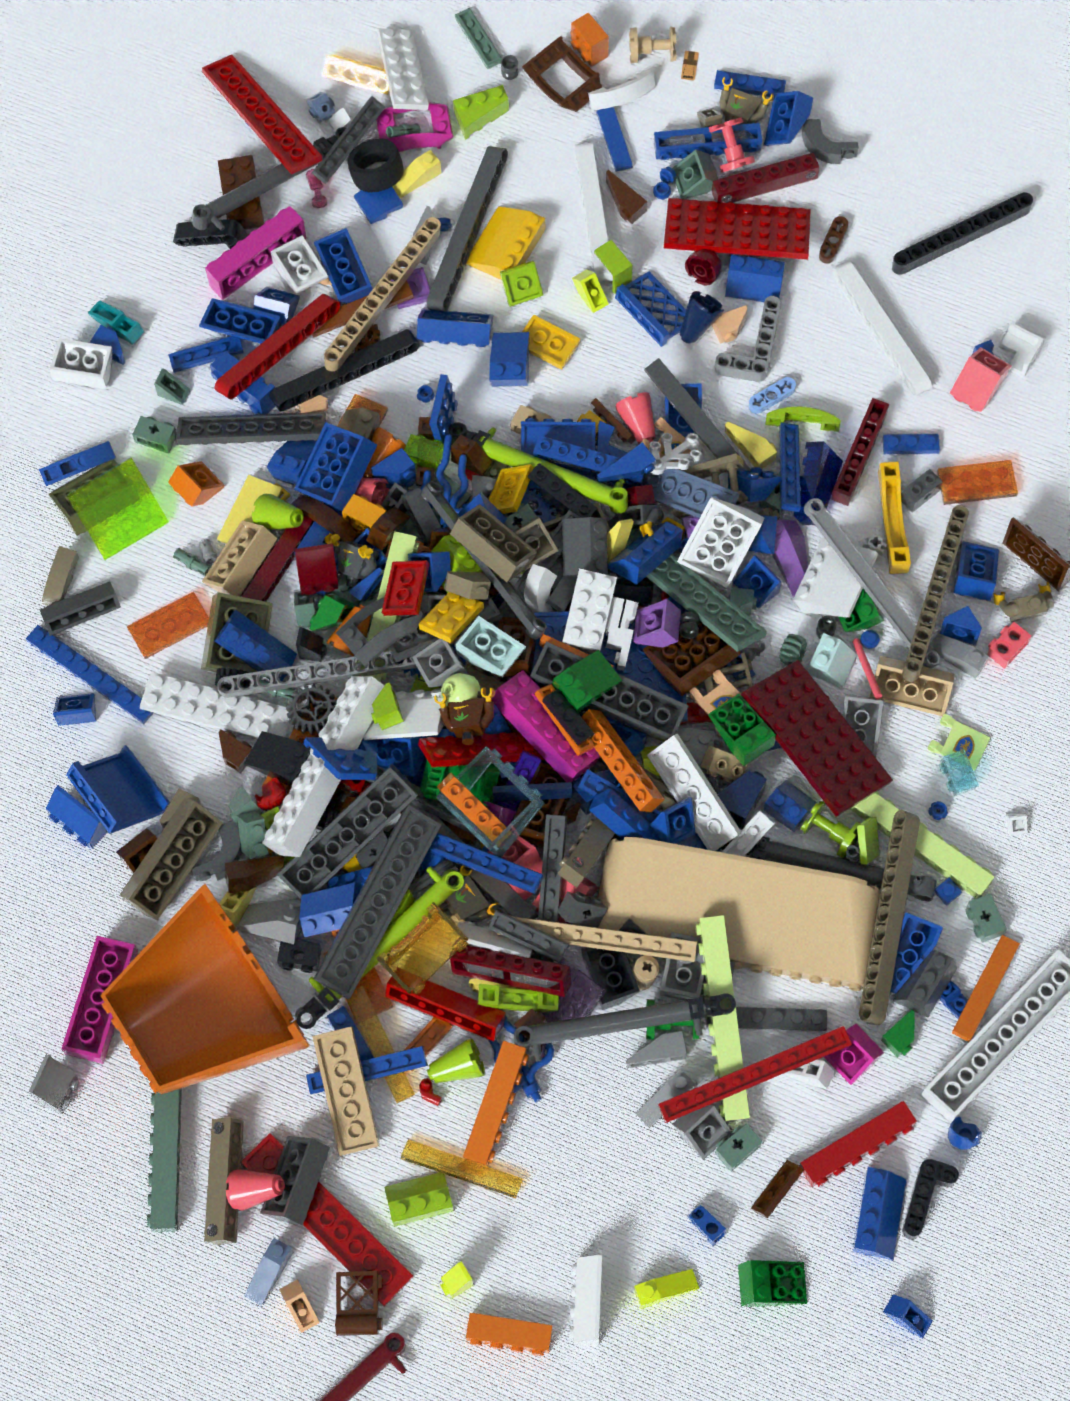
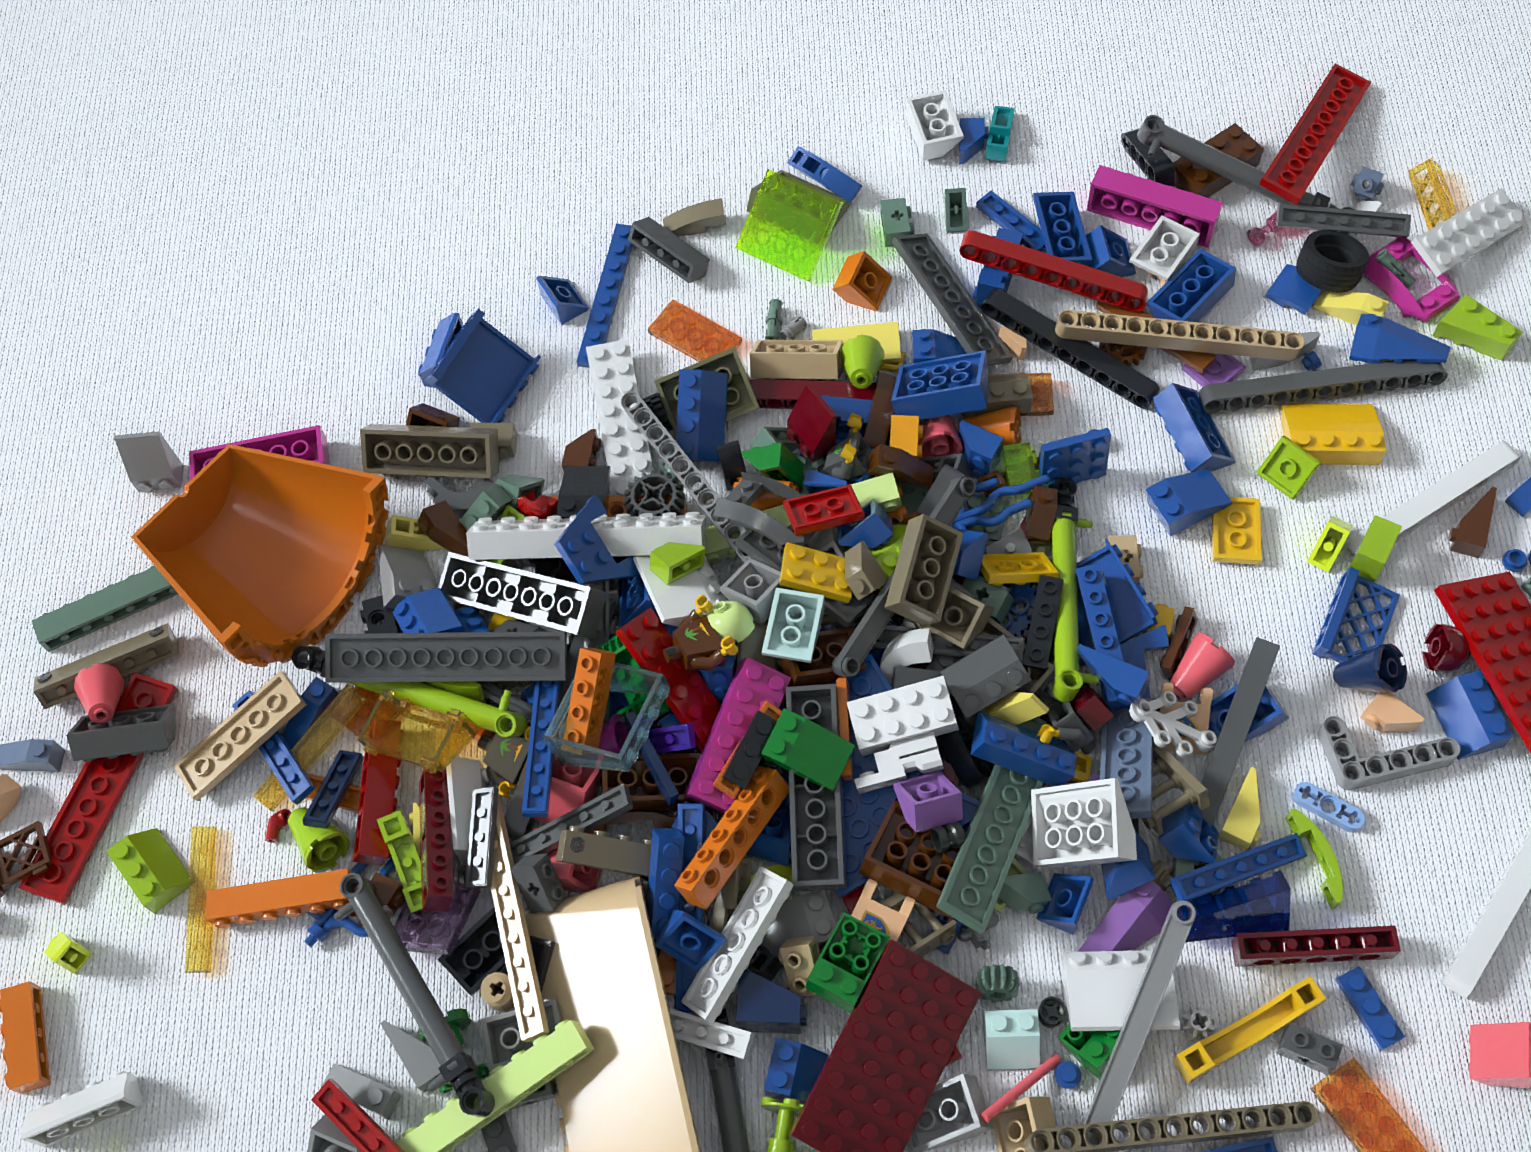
camera: 70 degrees right, 5 degrees down
(427, 1036) = (333, 789): none -> dark blue tile
(459, 169) = (1384, 339): none -> blue wedge

